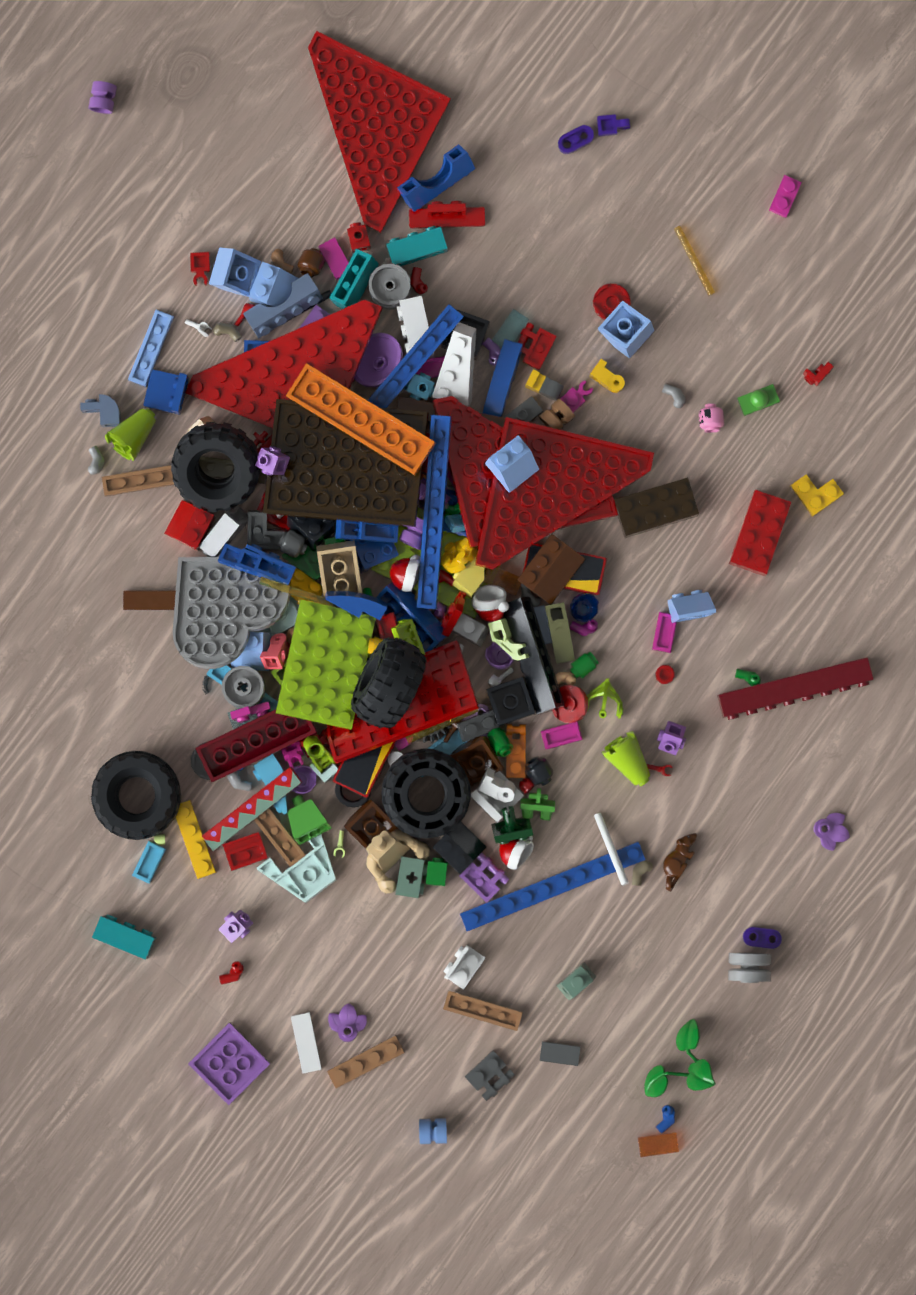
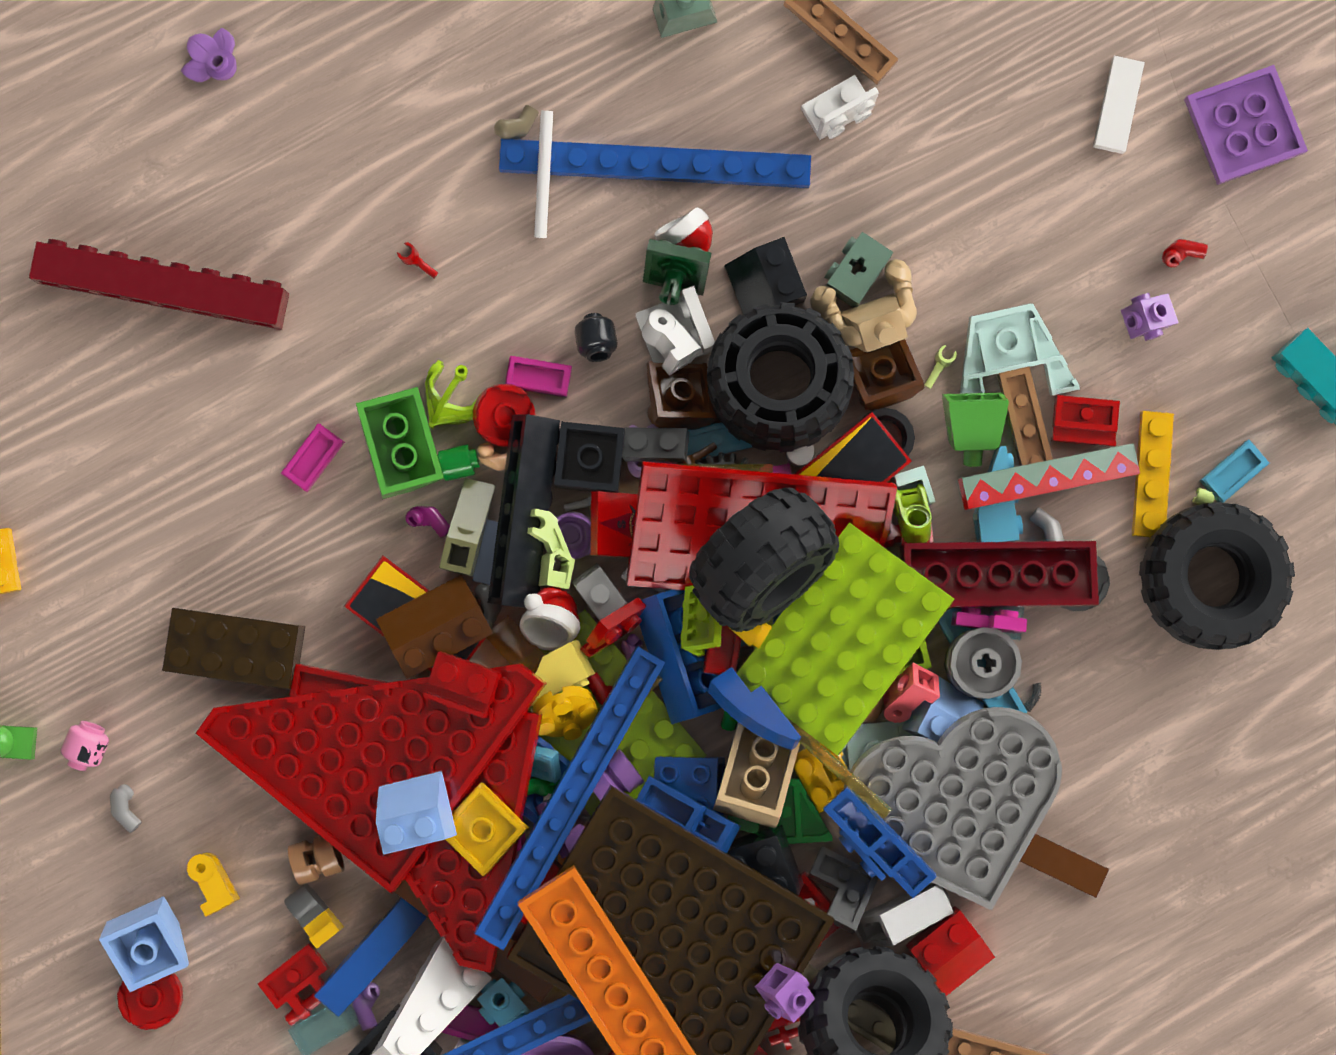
camera: 160 degrees left, 0 degrees up
(293, 543) = (808, 849): dark grey head -> none
(293, 754) = (952, 528): dark pink plate -> none
(308, 779) = (946, 486): medium lavender hair -> none
(347, 1020) = (1042, 108): medium lavender plate -> none
(365, 1061) = (1044, 38): medium nougat plate -> none
(405, 573) = (657, 724): piece -> none
(436, 872) = (816, 258): green brick -> none
(471, 473) = (485, 829): none -> yellow tile
(480, 882) = (758, 216): medium lavender plate -> none
(481, 671) = (612, 523): none -> red tile
(500, 742) = (633, 404): green brick -> none
(516, 759) = (617, 382): orange plate -> none
(519, 543) = (462, 684): none -> red plate
(526, 411) = (358, 889): dark grey plate -> none
(526, 785) = (625, 325): red hinge -> none
(539, 803) = (620, 291): bright green hips -> none
(574, 399) = (276, 874): dark pink plate -> none
(584, 607) = (413, 548): clear blue hair -> none
(619, 661) = (399, 442): none -> bright green slope
(628, 758) = (455, 295): lime cone -> none
(665, 674) = (342, 395): red tile -> none
(669, 741) = (376, 294): medium lavender brick -> none
(674, 863) = (459, 114): reddish brown animal -> none
(691, 606) = (253, 474): light blue slope -> none
(749, 676) = (219, 333): green arm -> none
(760, 533) = (97, 538): red brick -> none

